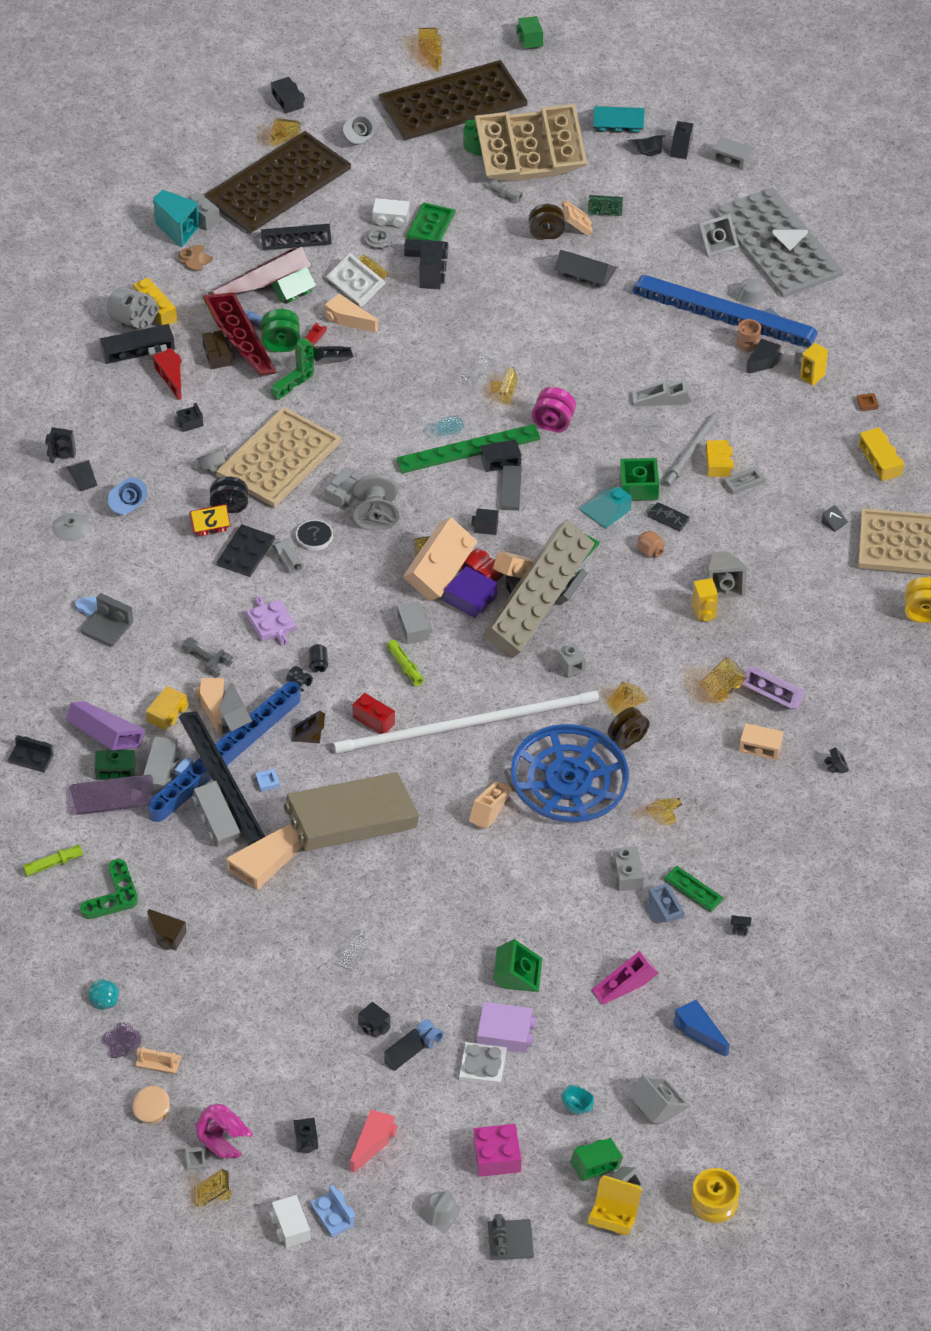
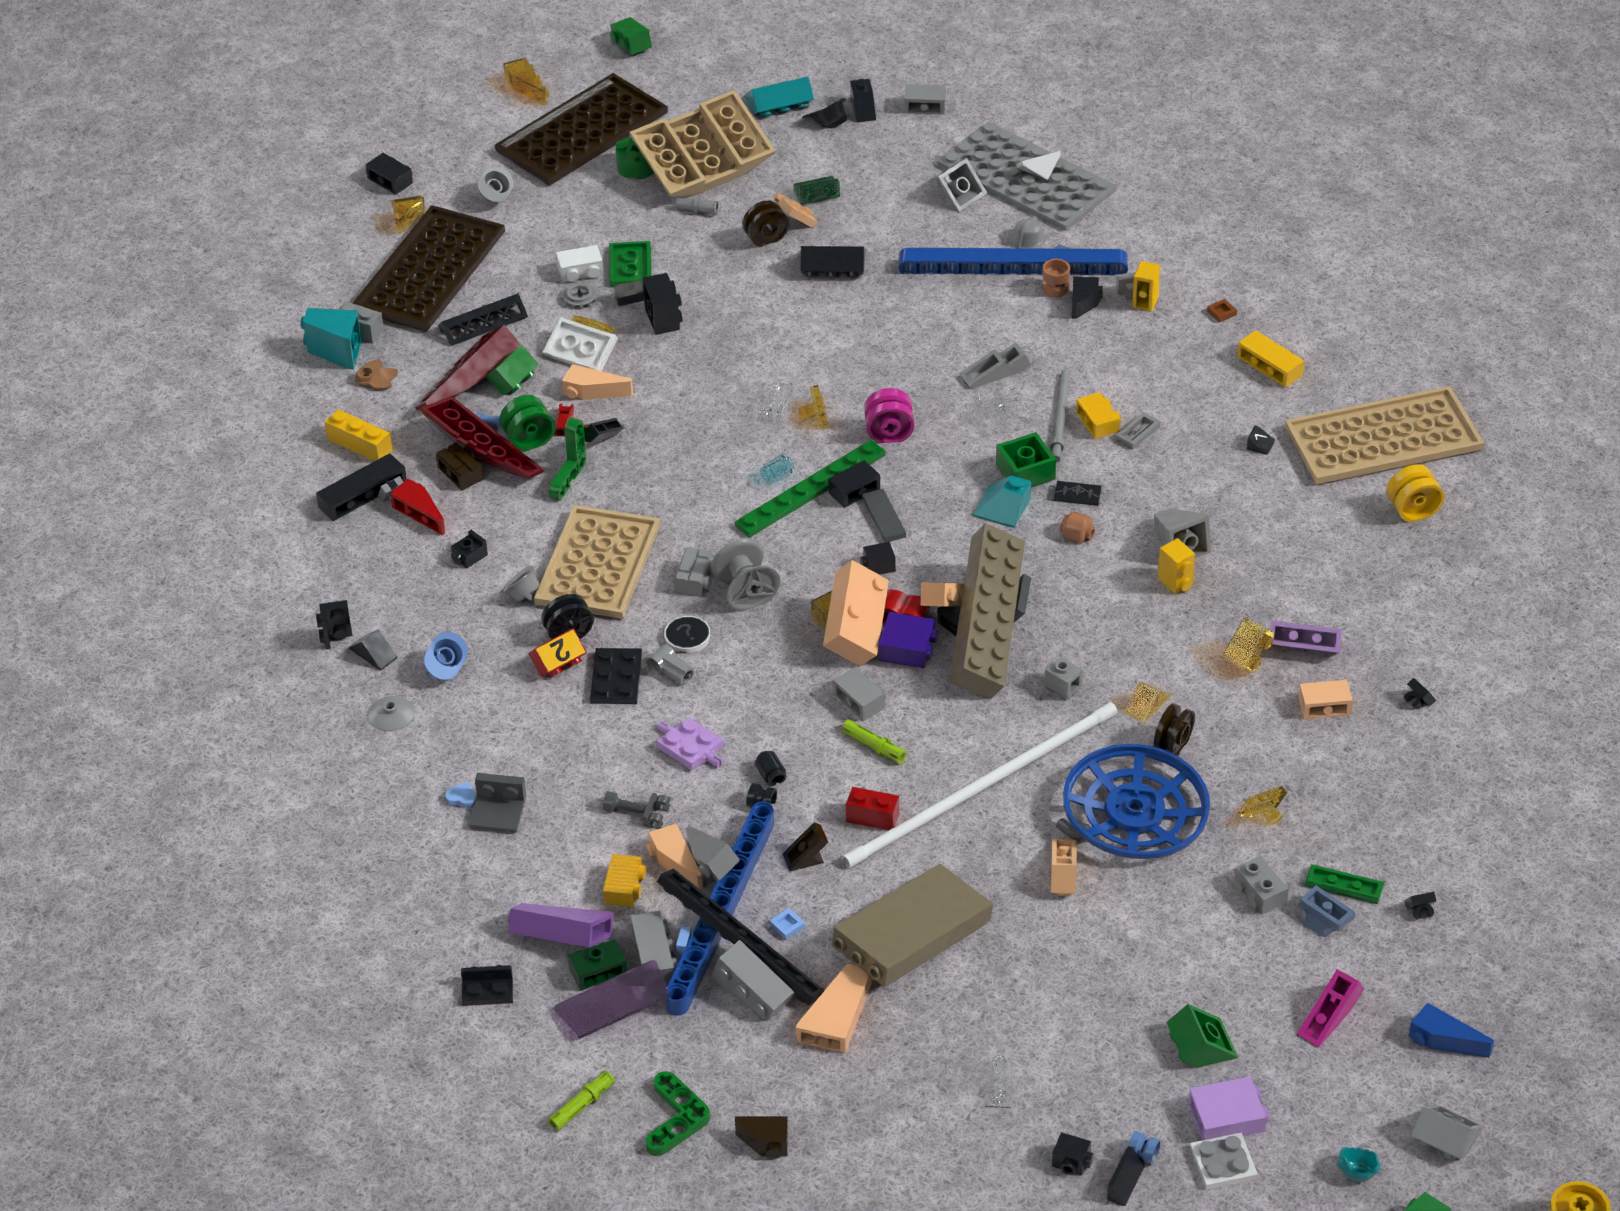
camera: 20 degrees left, 5 degrees down
(132, 307) = (338, 447): light grey cylinder -> none

